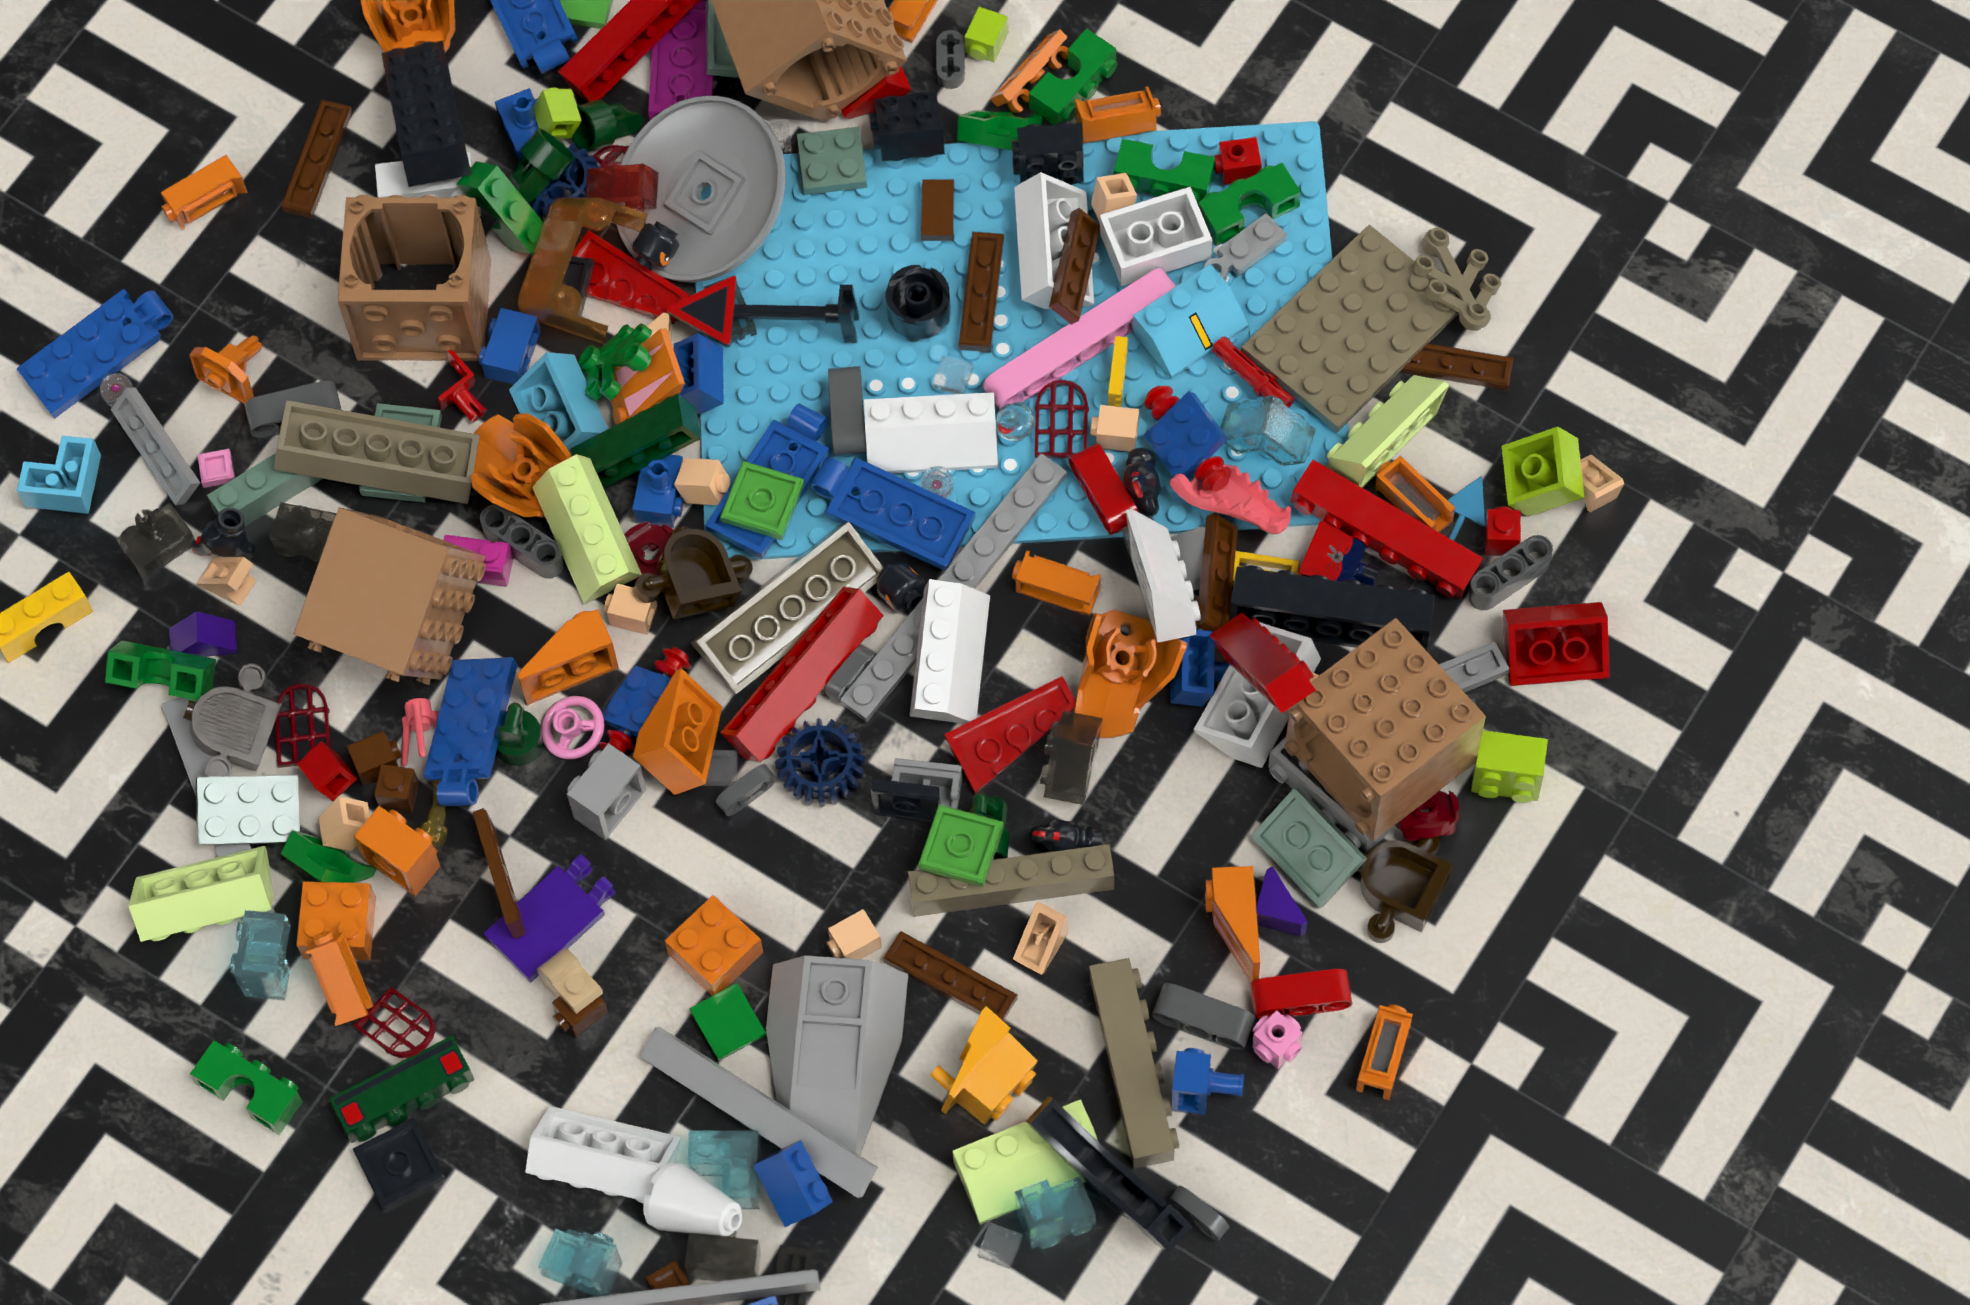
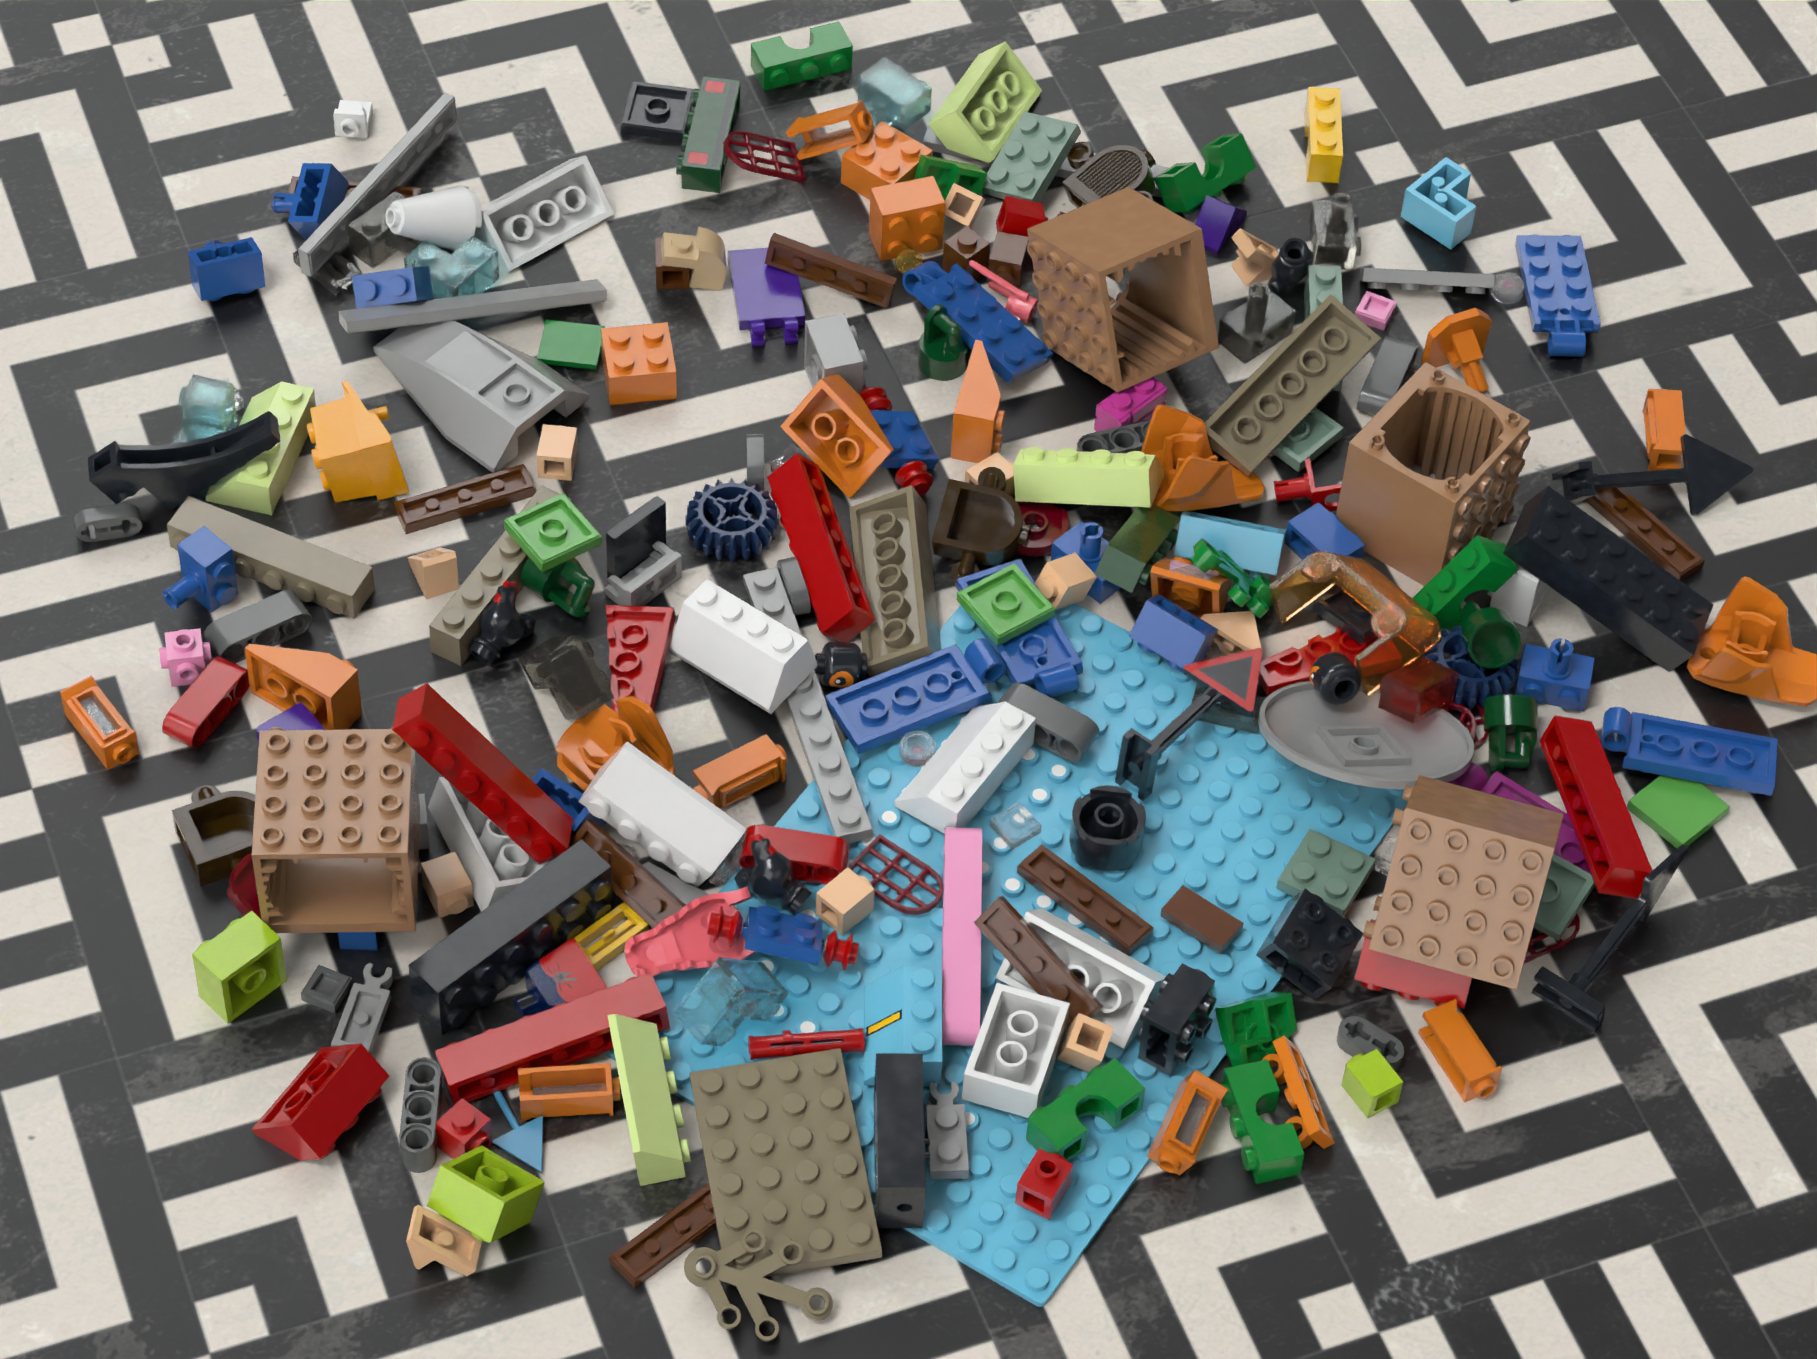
camera: 120 degrees right, 15 degrees down
(234, 138) = (1705, 472): none -> black piece
(557, 112) = (1540, 681): lime brick -> none
(562, 717) = (923, 384): bright pink piece -> none
(582, 1261) = (463, 151): clear light blue brick -> none
(1015, 421) = (920, 825): clear light blue animal -> none
(1118, 371) = (901, 937): yellow tile -> none
(1269, 189) = (986, 1186): green arch -> none
(1290, 252) = (899, 1140): none -> black brick

